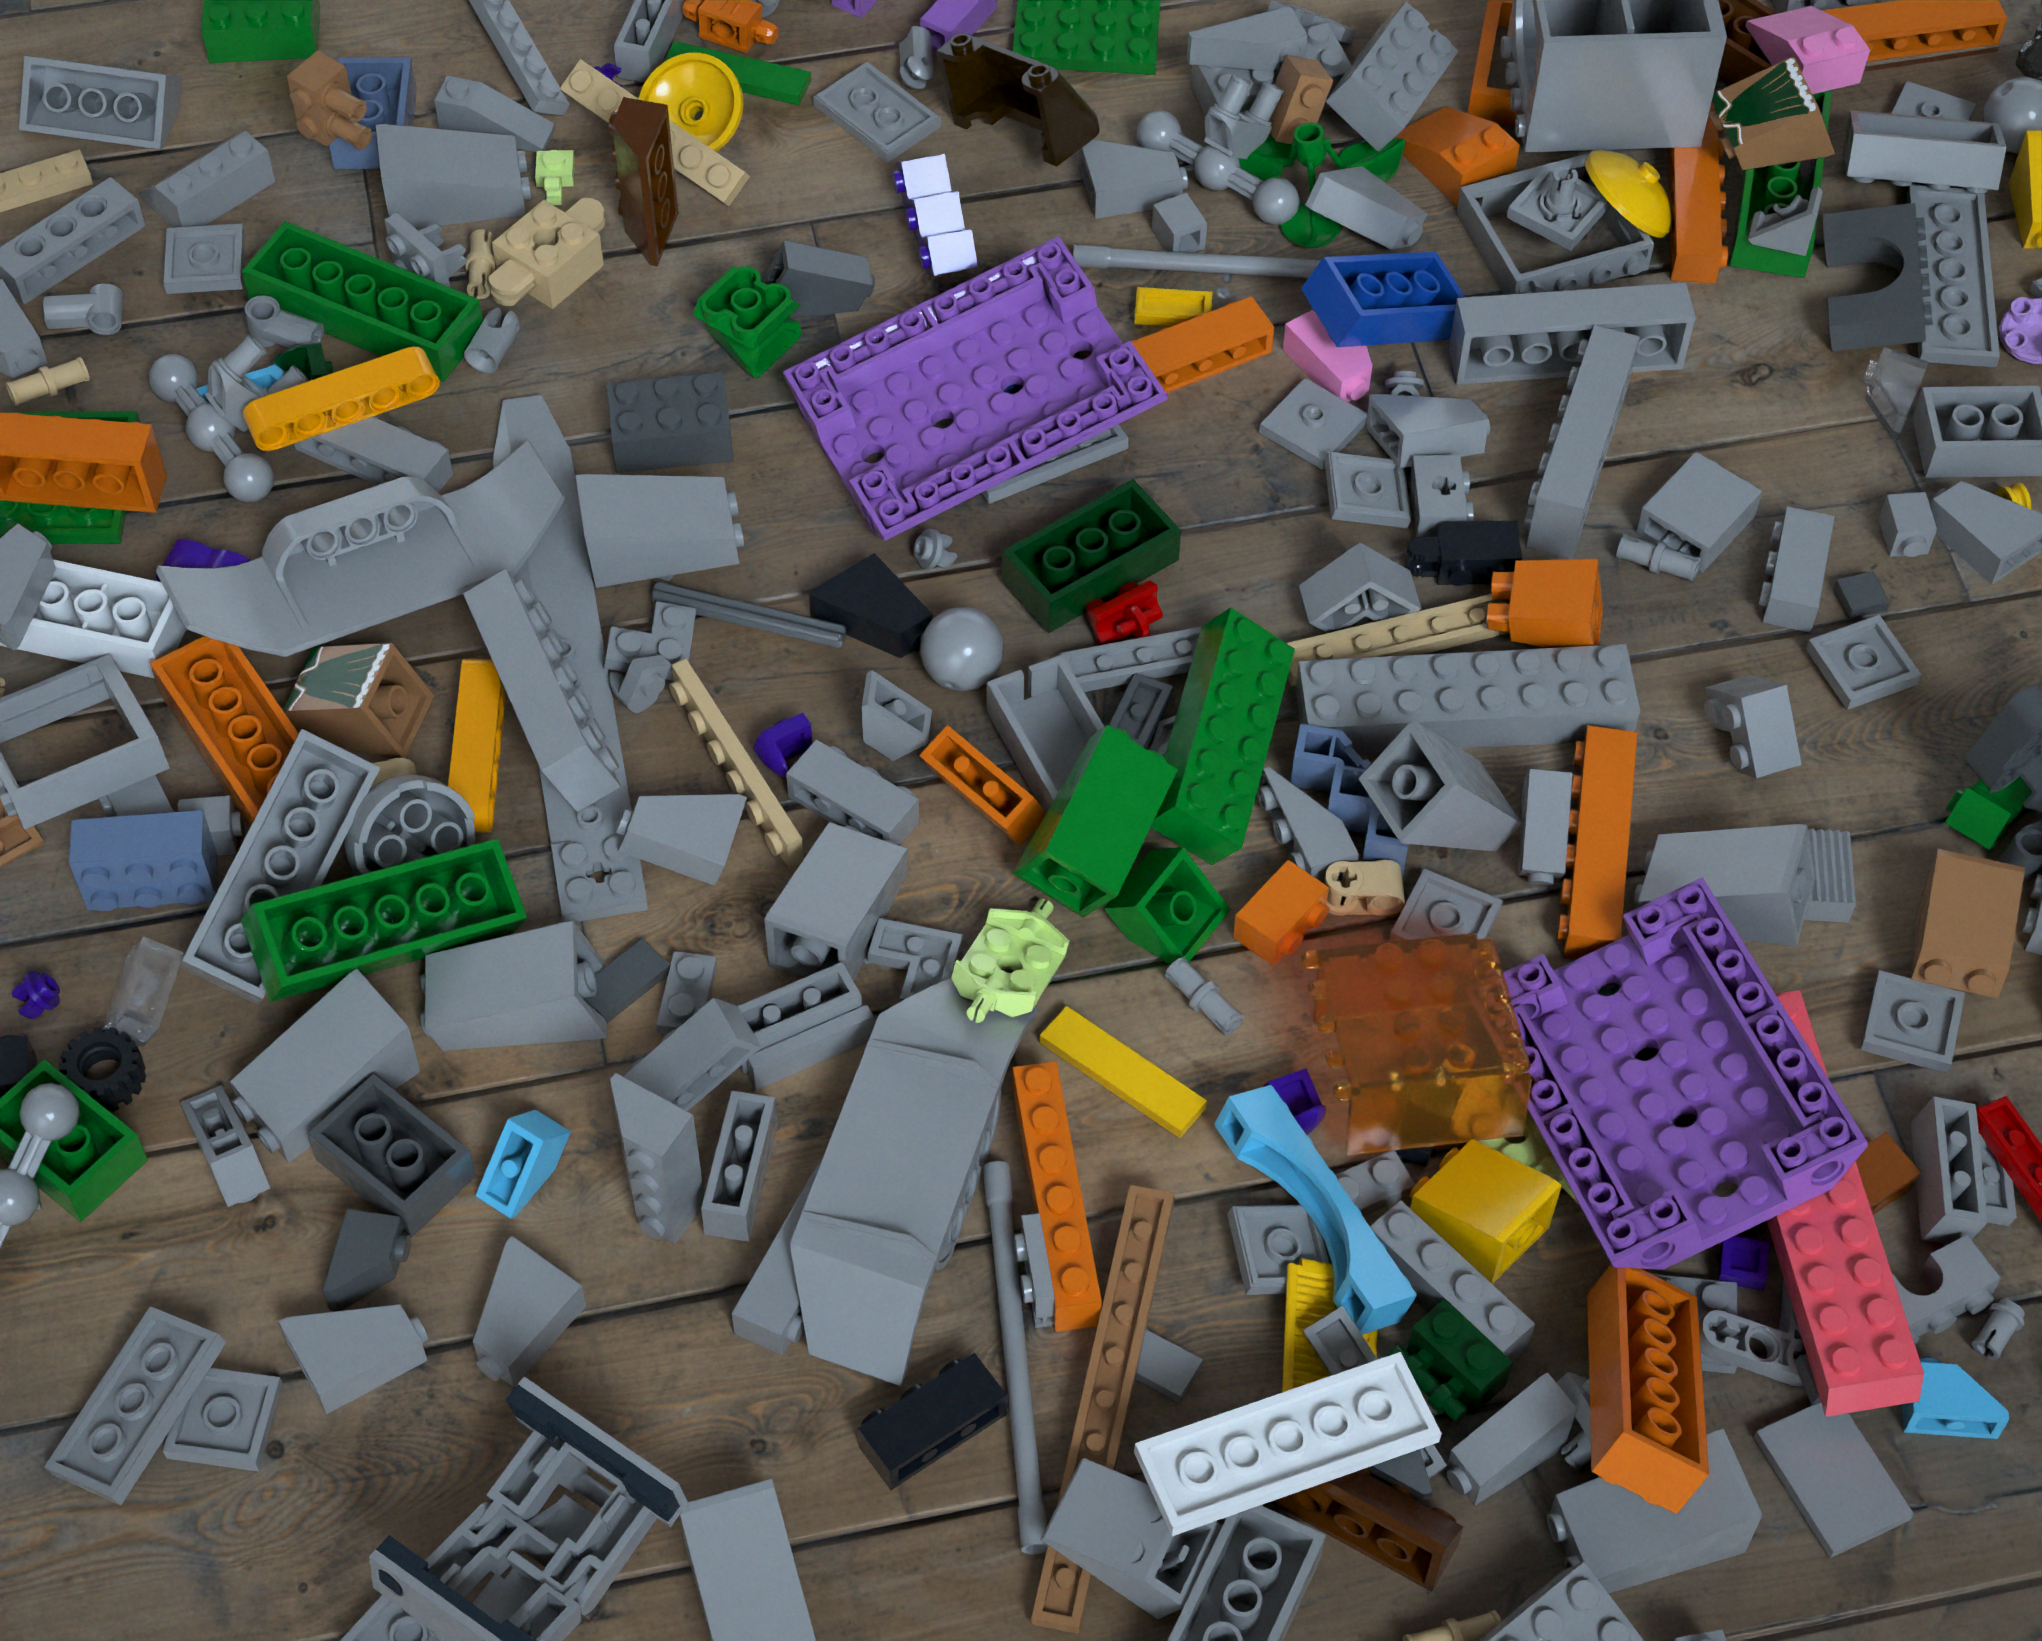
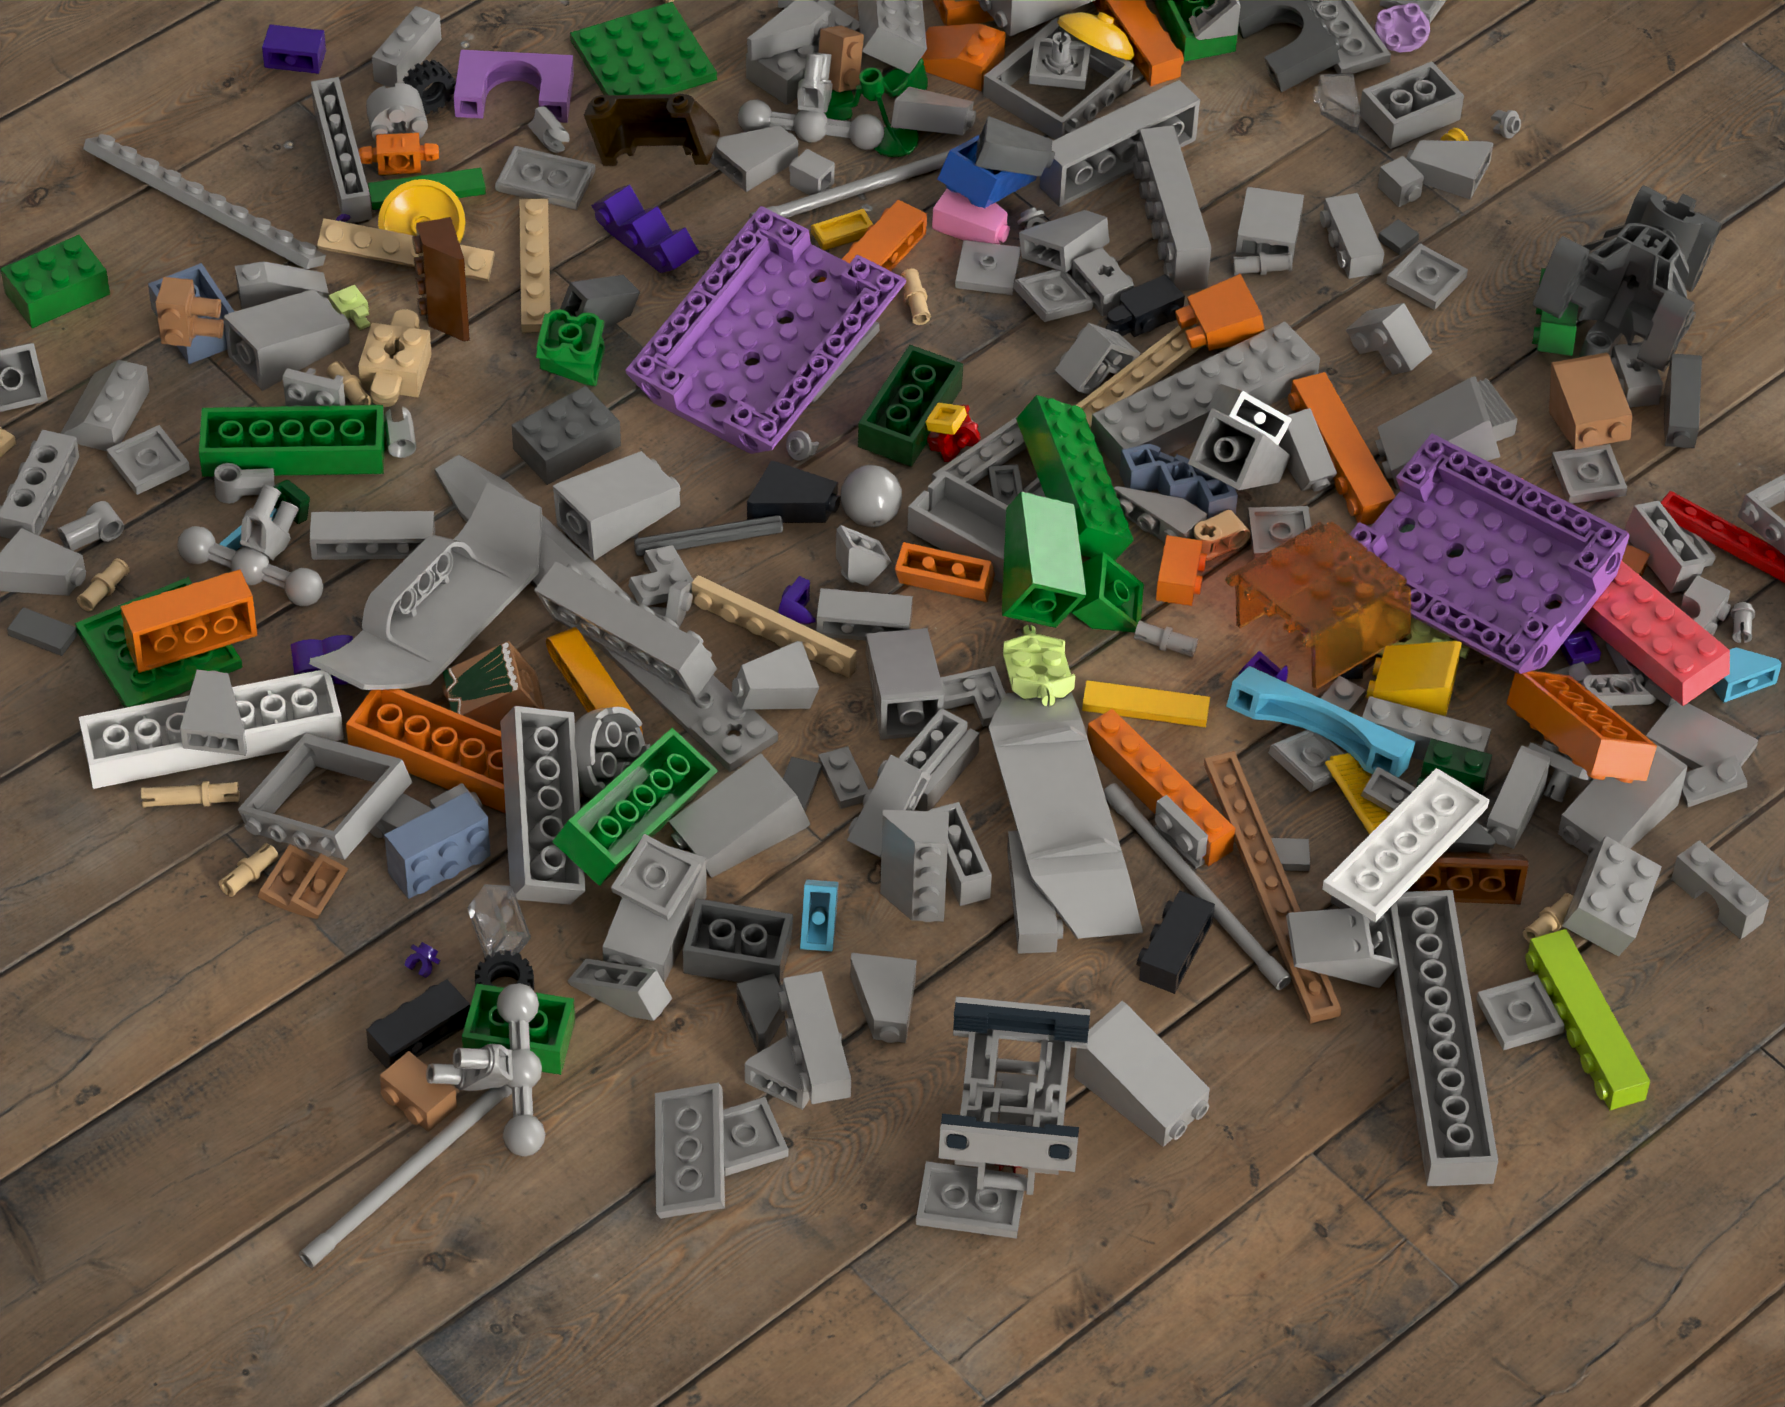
camera: 30 degrees left, 5 degrees down
(330, 1025) = (656, 877): none -> light grey plate
(340, 398) = (339, 506): light orange beam -> none
(372, 1333) = (815, 1038): none -> light grey brick
(795, 200) = (534, 263): none -> tan plate
(1111, 590) = (946, 418): none -> yellow plate
(1198, 423) = (916, 297): none -> tan pin
(1408, 286) = (1012, 149): none -> dark grey slope
(1485, 747) = (1250, 412): none -> light grey brick
(1807, 1543) = (1713, 781): none -> light grey plate

